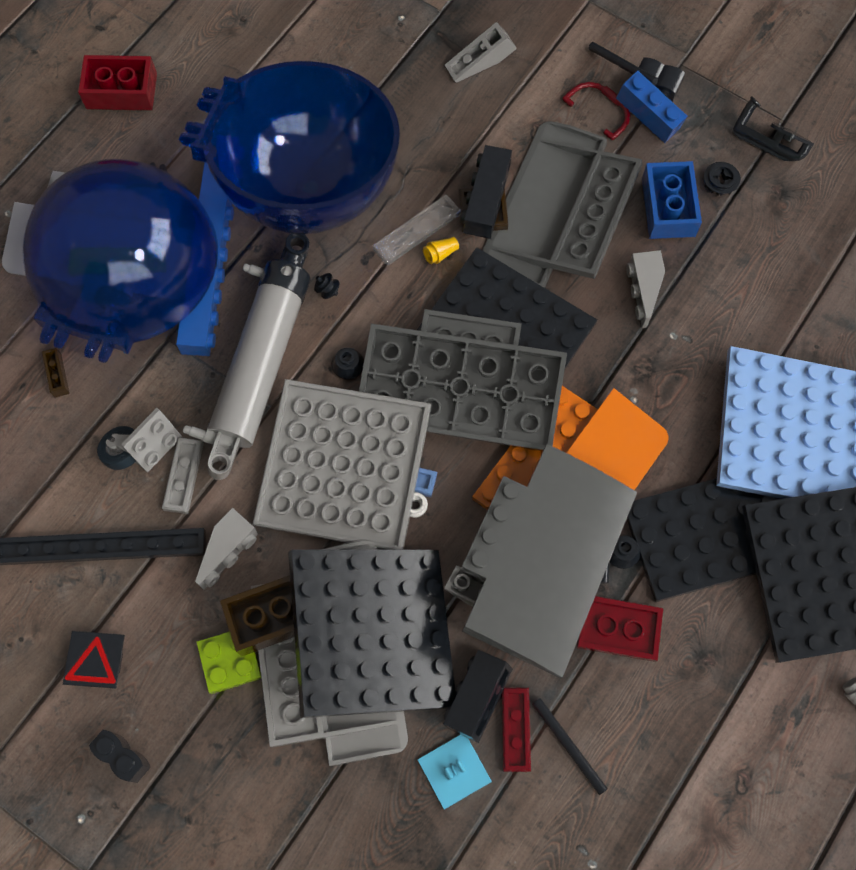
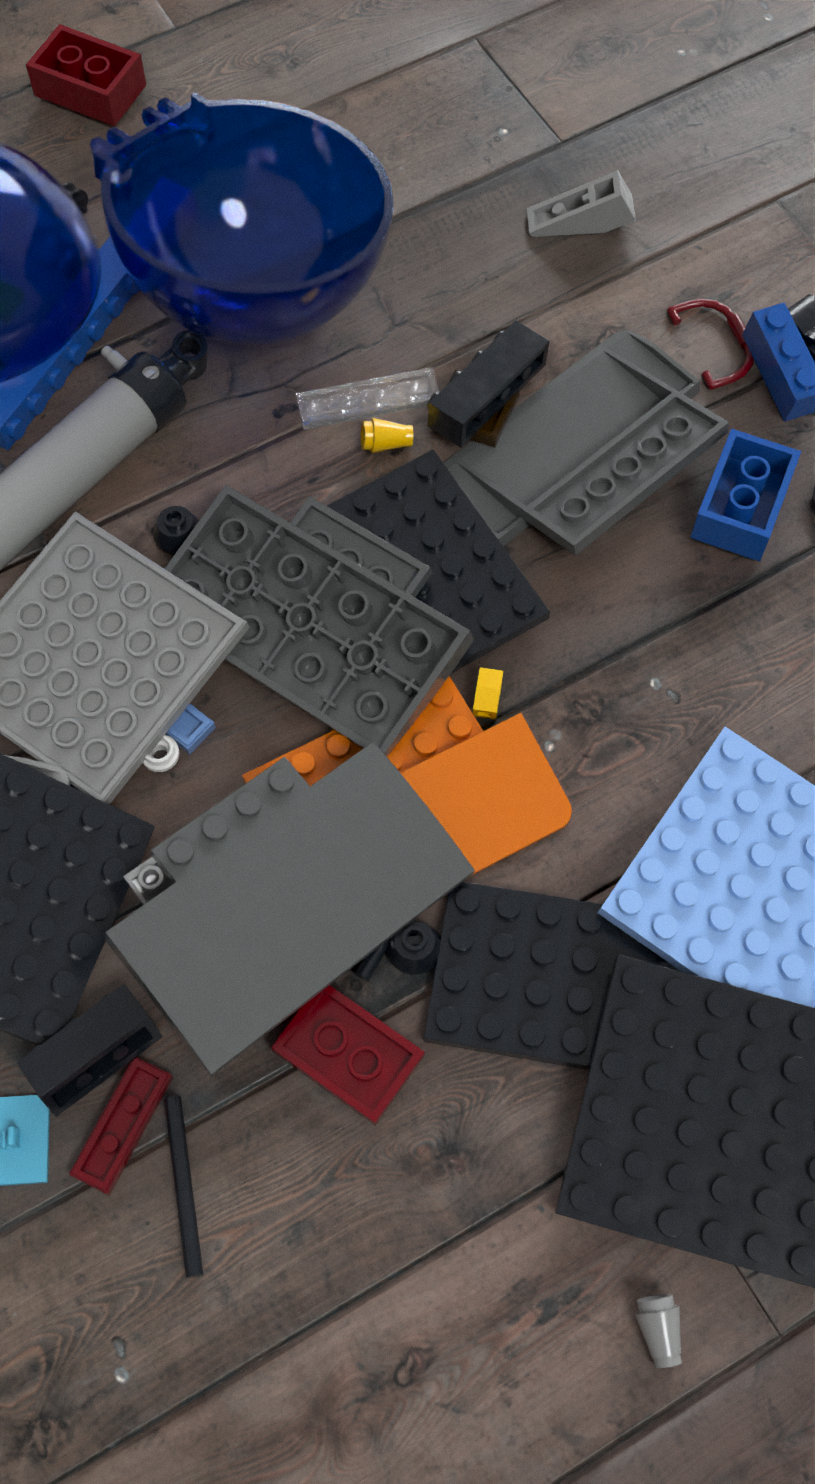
camera: 25 degrees right, 5 degrees down
(326, 285) = (205, 420): black wheel -> none
(585, 383) = (487, 693): none -> yellow piece
(620, 62) = (772, 289): black bar -> none
(647, 276) = (654, 595): light grey slope -> none

